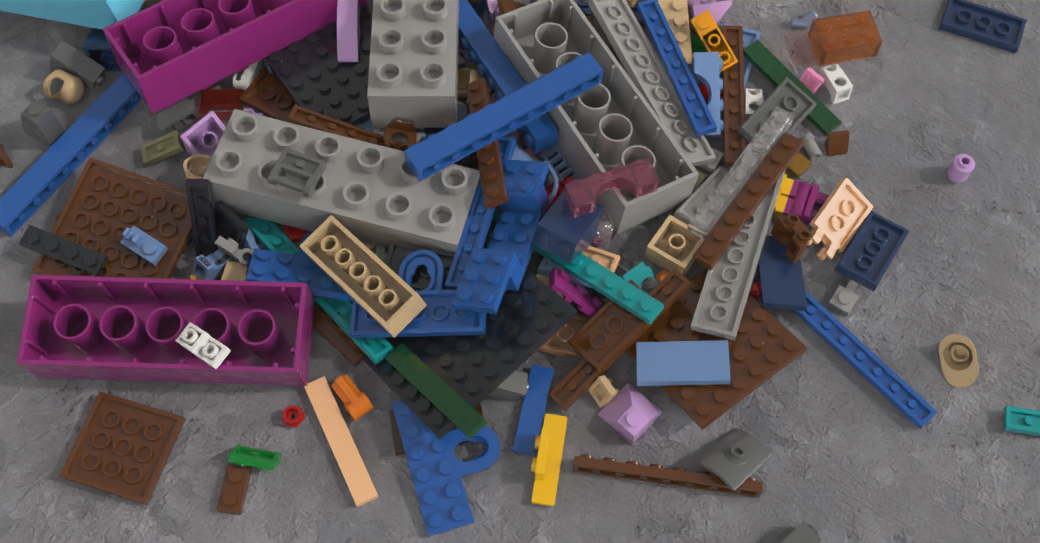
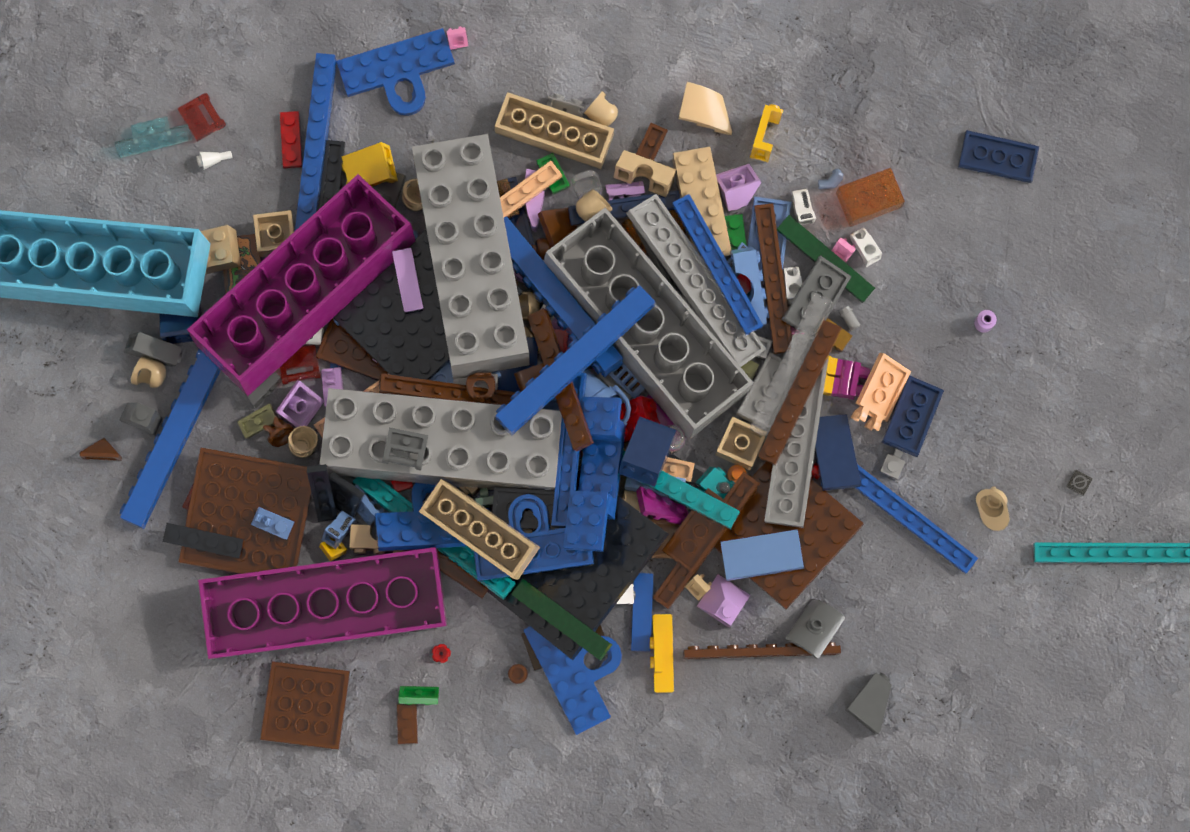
camera: 15 degrees left, 15 degrees up
(174, 164) = (278, 432): none -> reddish brown piece
(203, 345) = (362, 618): white slope -> none
(231, 248) = (352, 514): light grey plate -> none
(341, 441) = (485, 667): light nougat tile -> none
(354, 401) = (490, 631): orange piece -> none
(375, 454) = (517, 674): none -> reddish brown tile
(635, 177) = (702, 403): clear pink arch -> none
(712, 38) = (748, 227): light orange slope -> none
(773, 37) = (802, 207): none -> white leg
(792, 233) = (842, 415): reddish brown cylinder -> none
(837, 143) = (873, 311): reddish brown slope -> none

